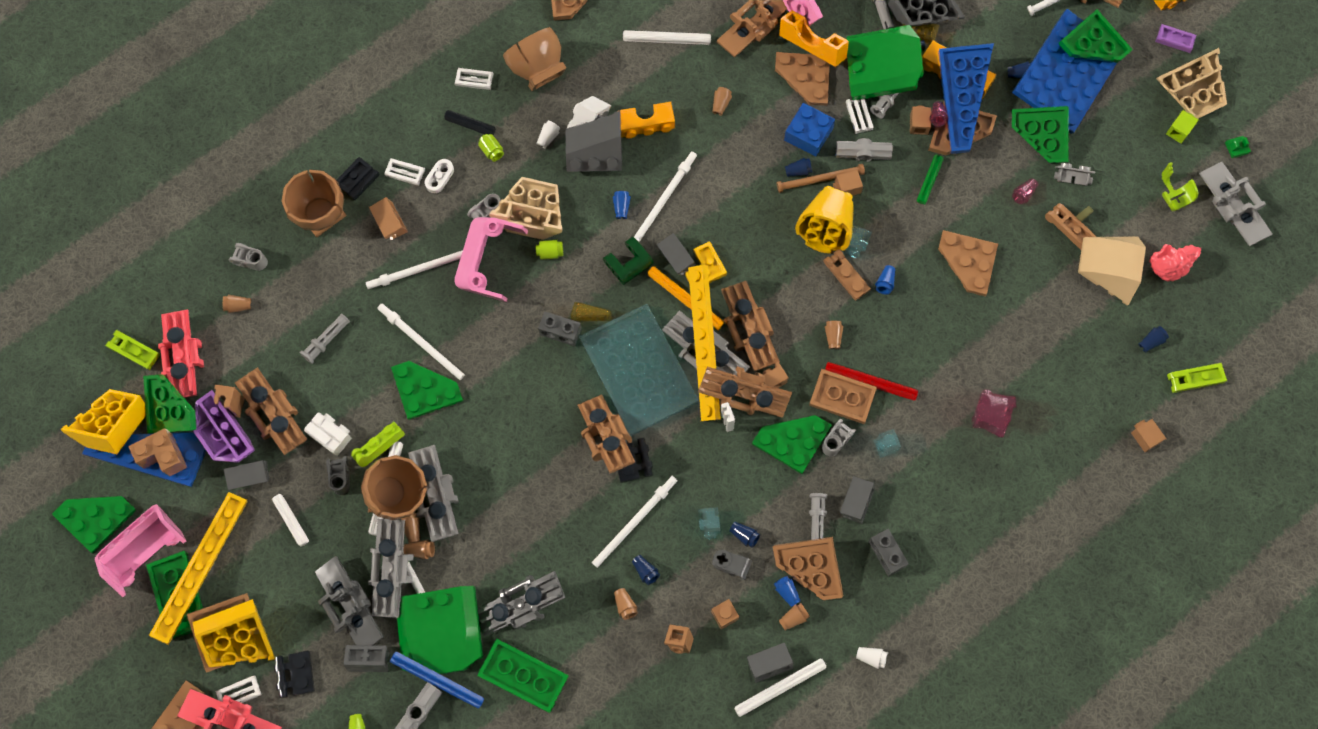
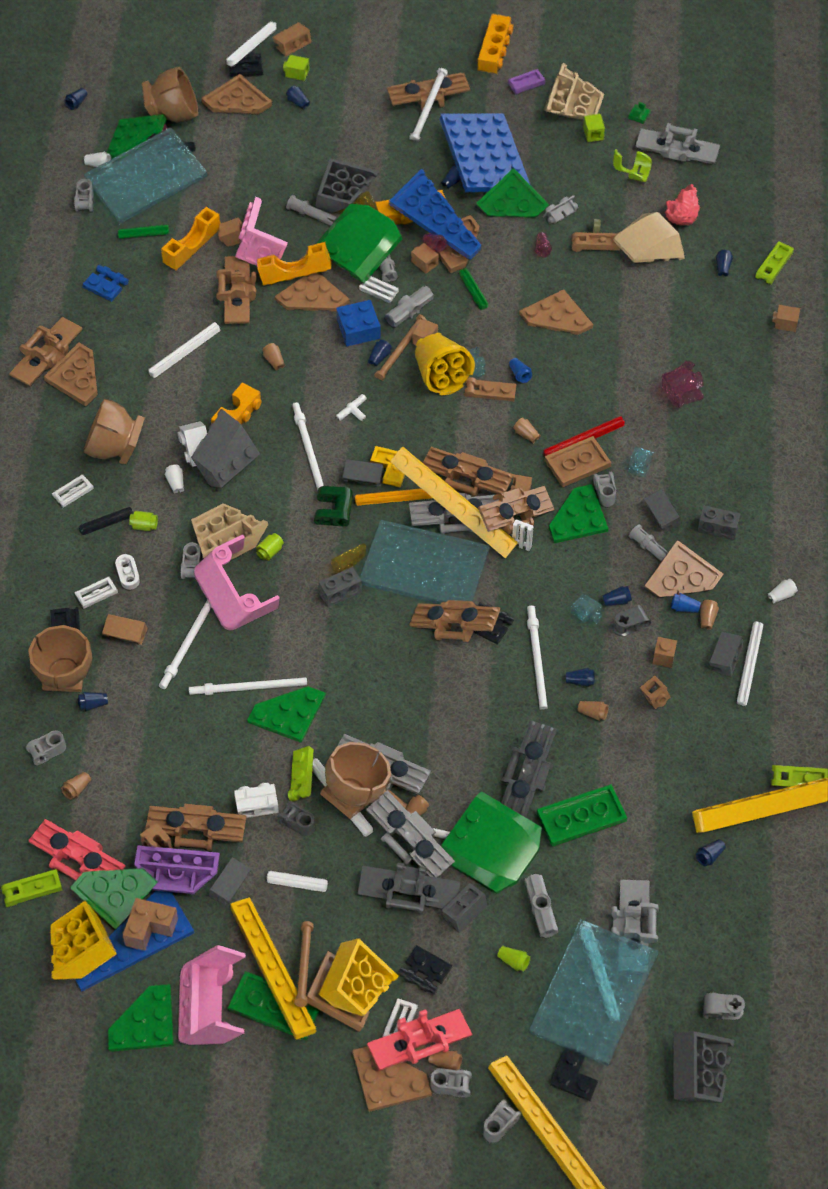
camera: 50 degrees left, 15 degrees down
(218, 587) = (301, 999): none -> medium nougat bar
(312, 250) = (92, 700): none -> dark blue cone
(318, 345) = (174, 751): light grey pin -> none
(437, 680) = (526, 871): blue axle -> none
(621, 204) = (284, 476): blue cone -> none
(730, 193) = (352, 408): none -> white piece
(1095, 40) = (482, 117): green plate -> none

